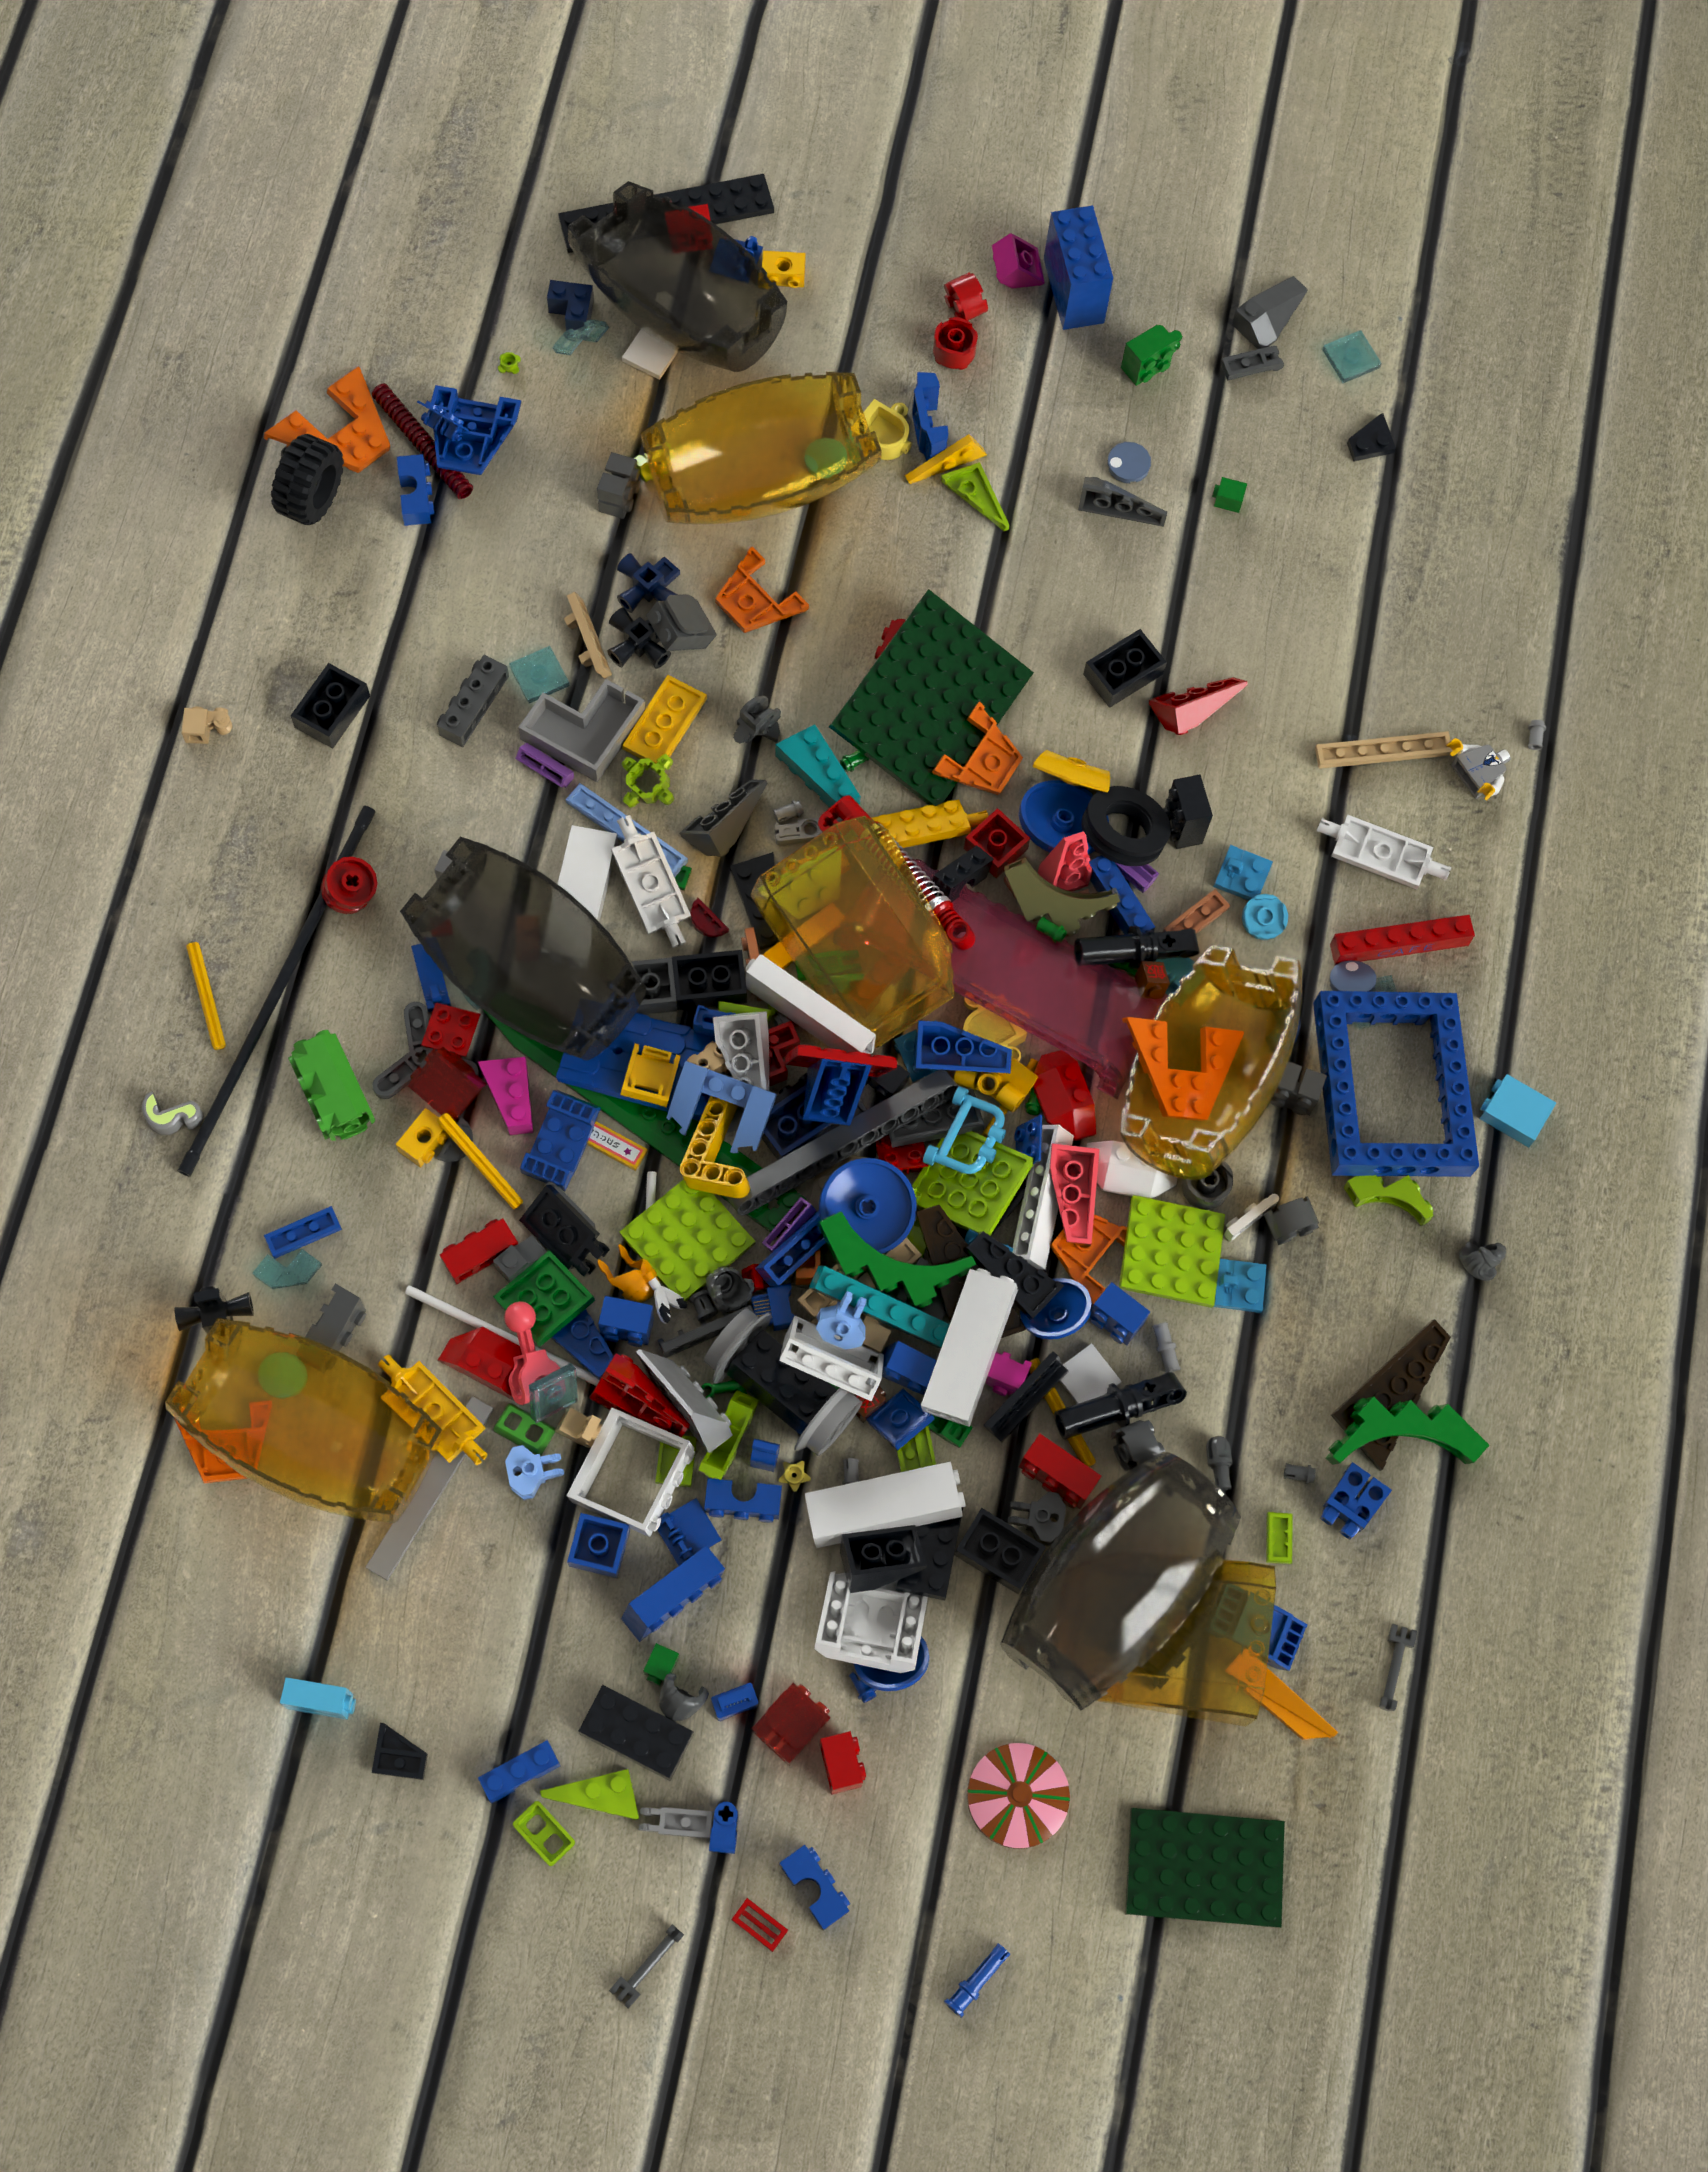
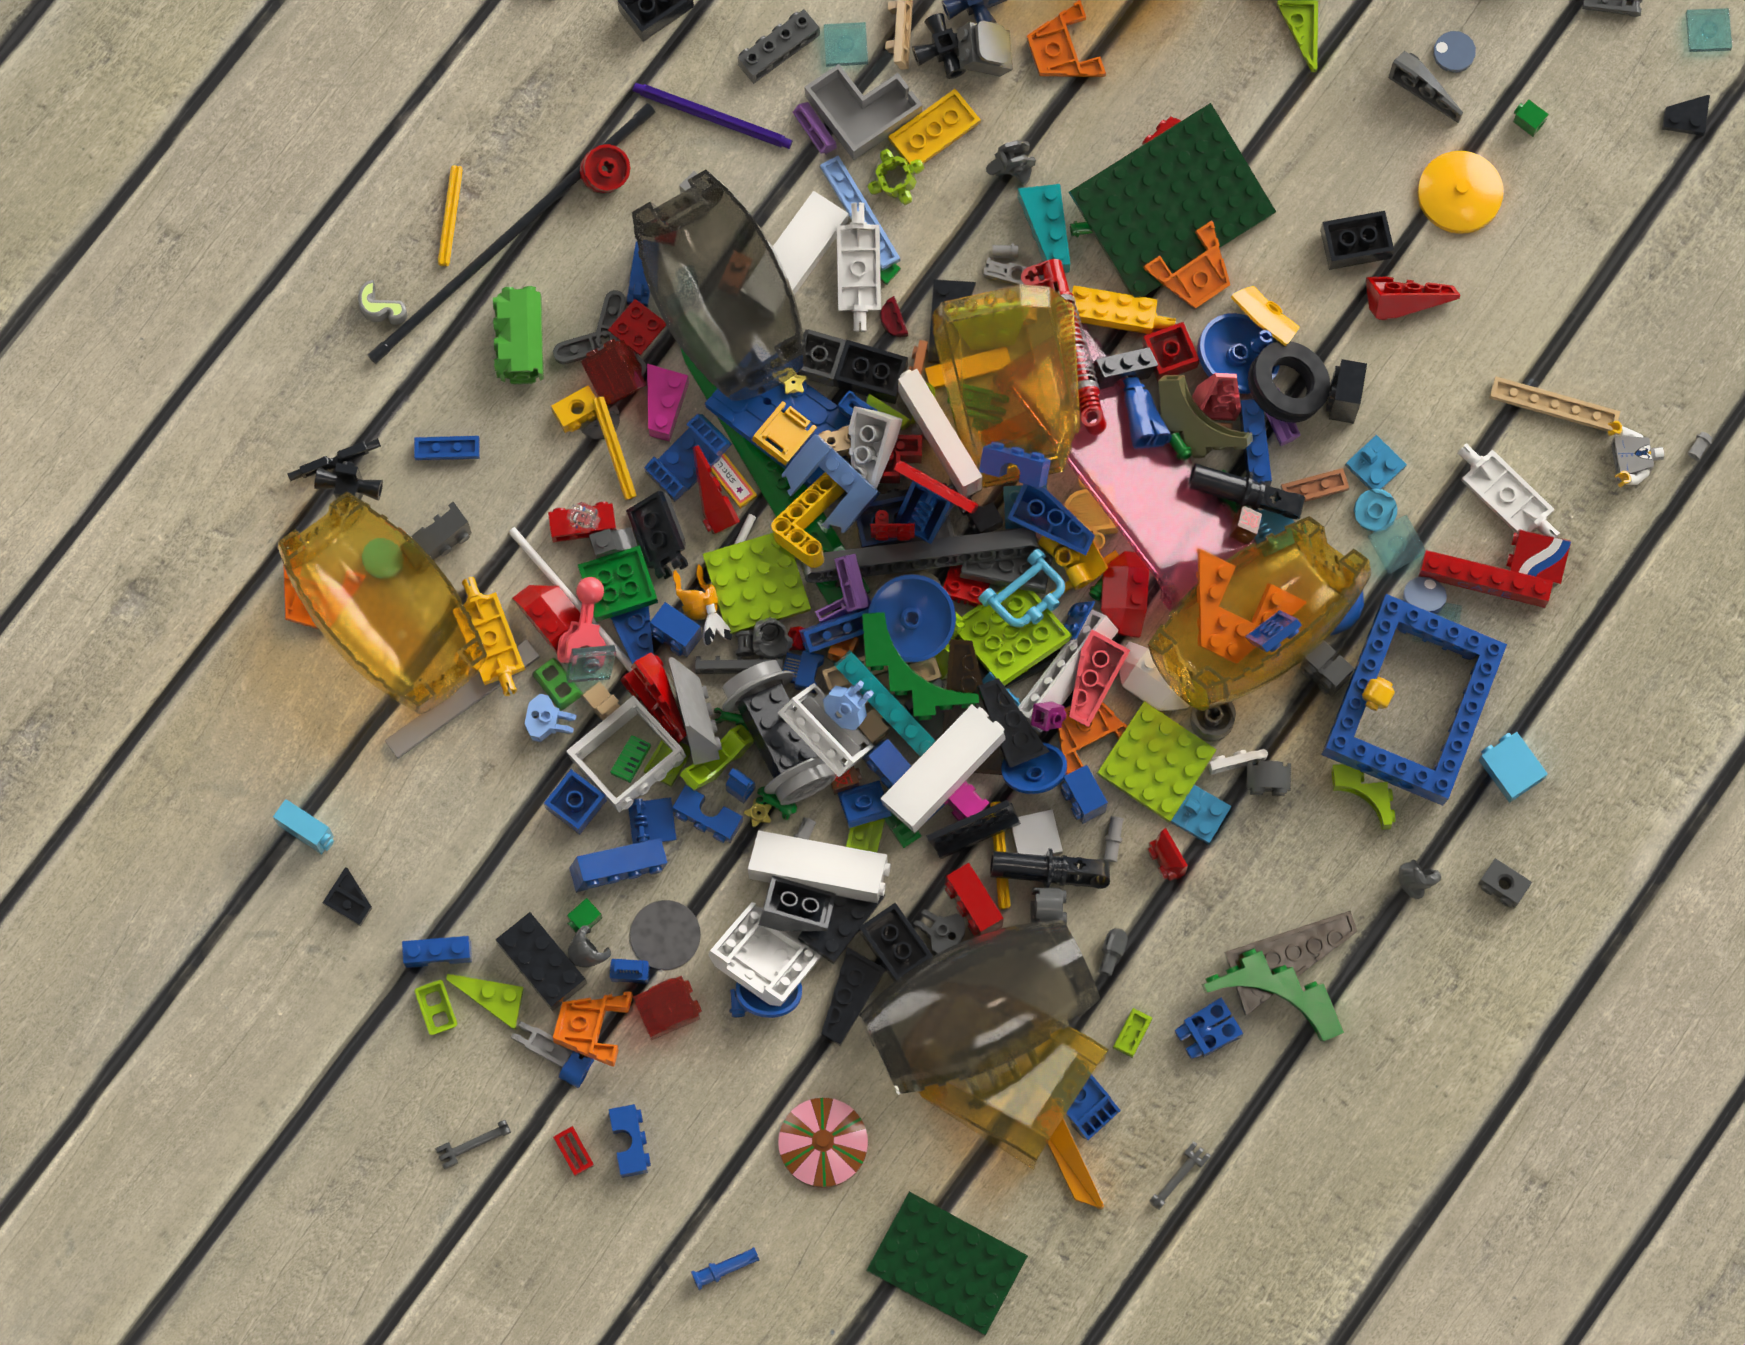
camera: 30 degrees right, 5 degrees up
(194, 1285) = (330, 463): none -> black piece
(297, 1273) = (430, 479): clear light blue tile -> none
(434, 793) = (712, 115): none -> dark purple piece
(480, 1244) = (583, 517): none -> clear head
(612, 1178) = (716, 508): none -> red wedge
(636, 1027) = (797, 386): none -> light yellow plate
(639, 1475) = (630, 759): none -> green tile
(709, 1783) = (581, 1024): none -> orange wing
(722, 827) = (942, 242): dark grey wedge -> none
(753, 1646) = (665, 934): none -> flat silver sticker
(789, 1196) = (851, 582): none -> medium lavender piece
(799, 1128) = (882, 530): none -> red hinge
(807, 1455) = (772, 799): none -> green piece
(841, 1762) = (691, 1054): red brick -> none
(923, 1004) = (1032, 467): none -> blue arch
(976, 1625) = (853, 989): none -> black wing
(1008, 919) = (1145, 422): none -> blue piece
(1054, 1249) = (1053, 715): none -> magenta brick
(1080, 801) = (1261, 341): none -> blue pin
(1197, 588) = (1460, 192): none -> yellow dish
(1230, 1341) = (1168, 856): none -> red slope
(1239, 1068) = (1273, 631): none -> blue hinge
(1299, 1473) = (1175, 988): dark grey pin -> none
(1301, 940) = (1397, 544): none -> clear light blue tile
(1365, 1089) = (1378, 693): none -> yellow head
(1442, 896) = (1538, 555): none -> panel
(1579, 1223) = (1517, 883): none -> dark grey brick

